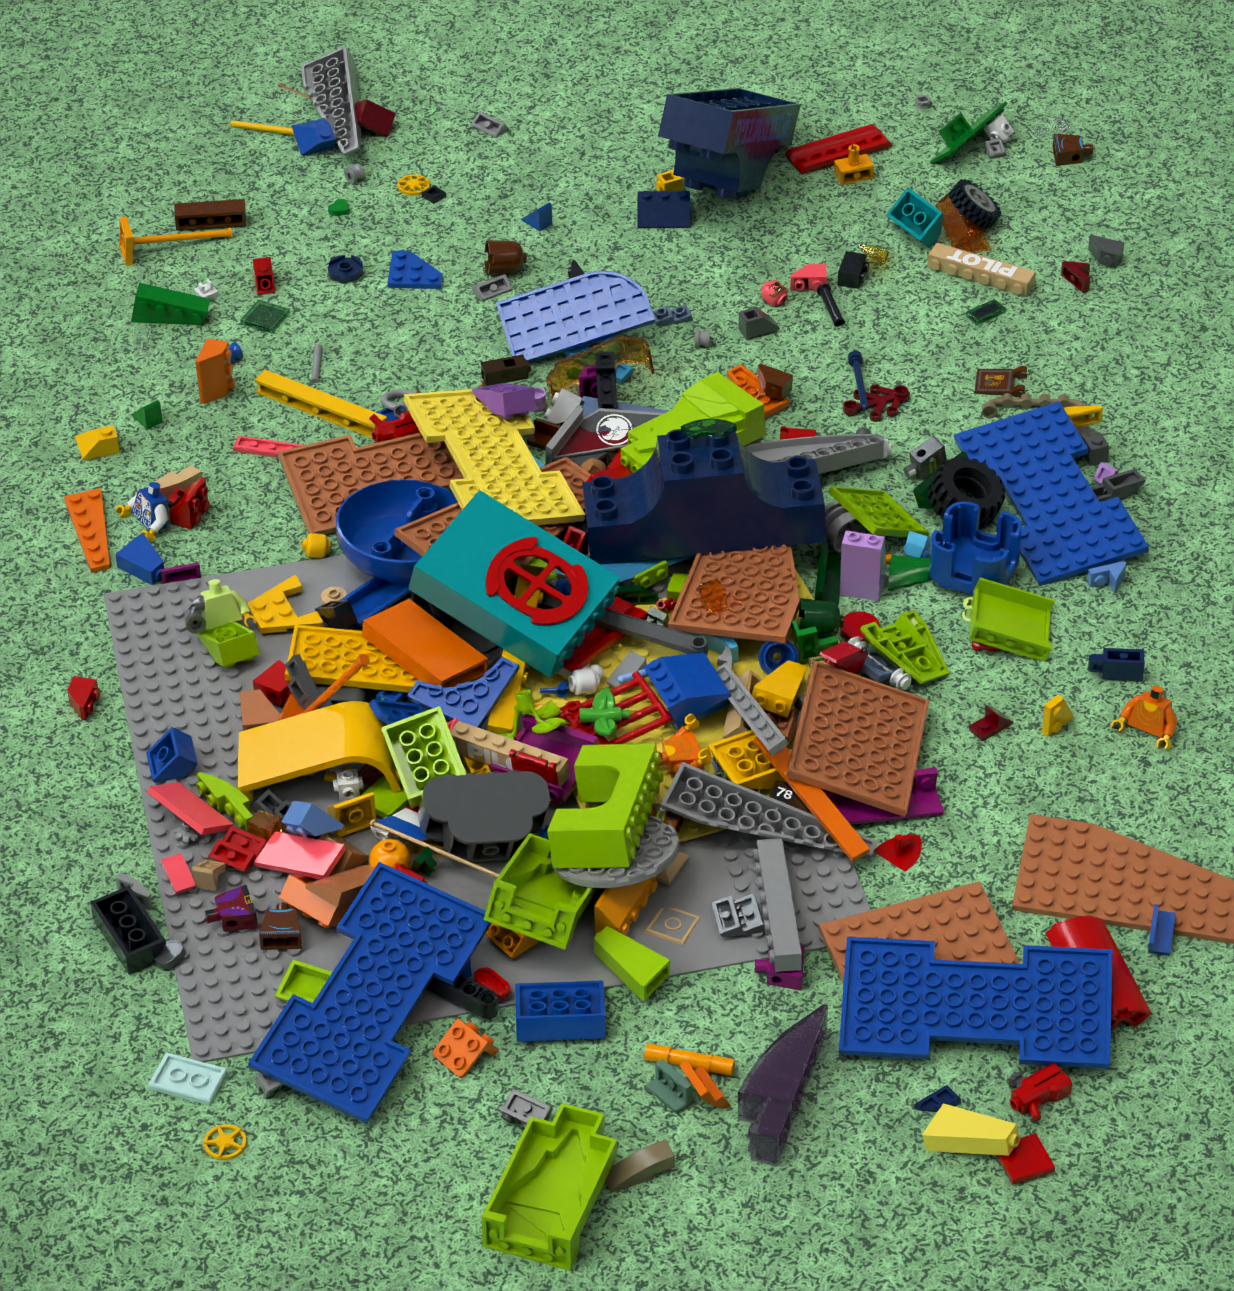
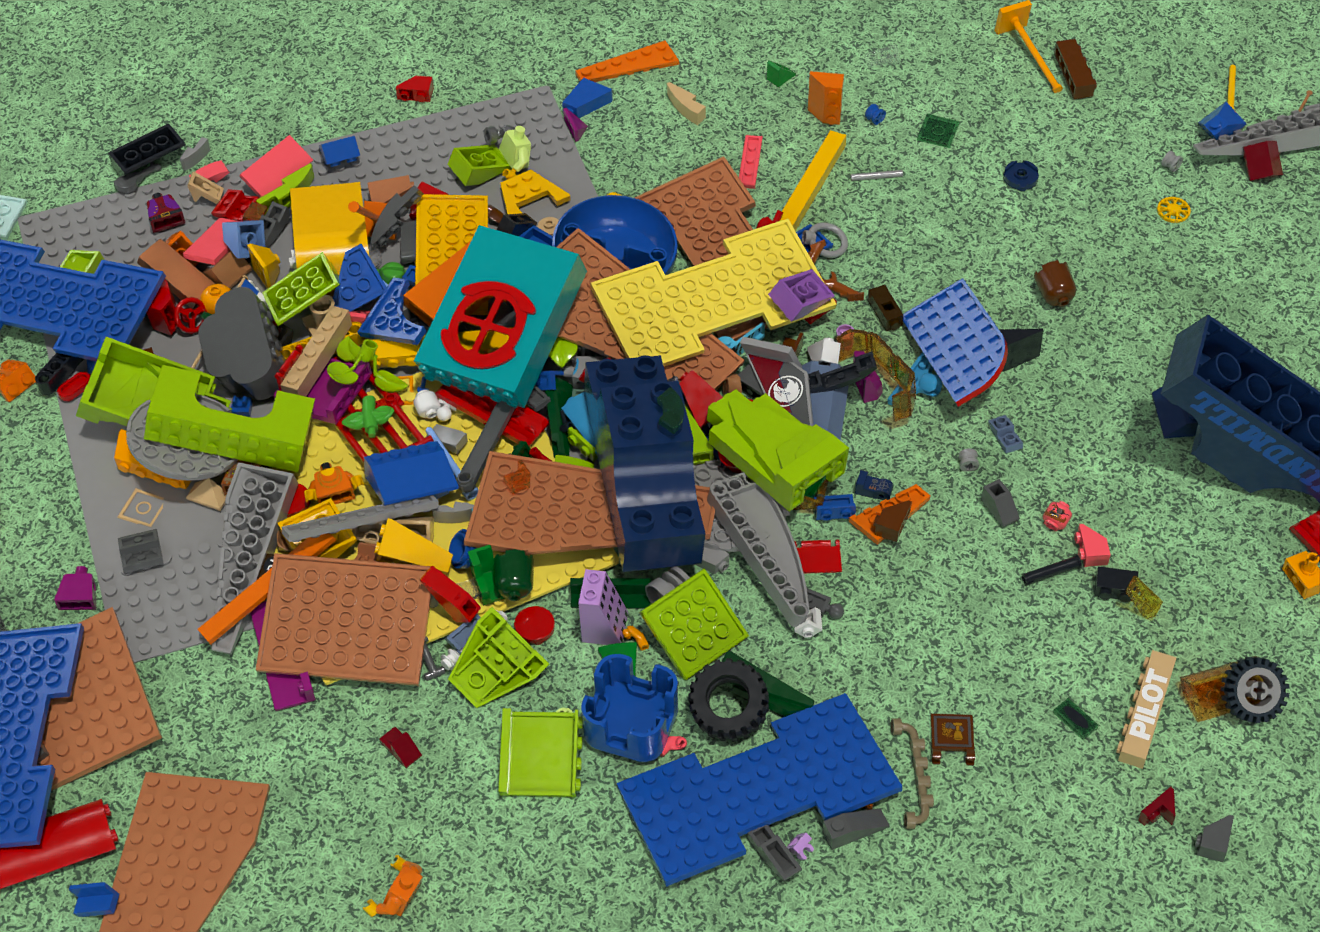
camera: 85 degrees right, 10 degrees up
(98, 443) = (741, 51): yellow slope -> none
(149, 507) = (644, 92): torso -> none
(168, 306) = (927, 60): green wedge -> none
(173, 497) = (659, 101): red tile -> none
(190, 505) = (655, 117): red slope -> none
(206, 290) = (965, 86): white tile -> none
(263, 275) = (994, 118): red slope -> none
(280, 929) = (138, 240): reddish brown torso -> none
(338, 208) = (1118, 159): green tile -> none
(412, 272) = (1030, 224): blue plate -> none
(433, 194) = (1160, 226): black tile -> none
(489, 124) = (1293, 255): light grey slope -> none
(492, 287) = (1018, 287): light grey slope -> none
(540, 218) = (1138, 309): blue slope -> none
(560, 1011) = (40, 433): blue slope -> none
(631, 961) = (83, 476): lime slope -> none
(778, 905) = (137, 573): light grey brick -> none
(855, 360) = (960, 597): dark blue piece -> none
(897, 395) = (895, 623): dark red plant -> none
(901, 850) = (229, 679): red shield -> none
(917, 217) = (1211, 633): teal slope -> none
(917, 545) = (650, 659): medium azure piece -> none
(926, 459) = (792, 667): dark grey torso -> none
(1055, 715) = (398, 799): yellow wing -> none
(1075, 411) = (896, 814): yellow slope -> none
(1108, 574) = (627, 852): medium blue slope -> none
(1118, 664) = (480, 858): dark blue brick -> none

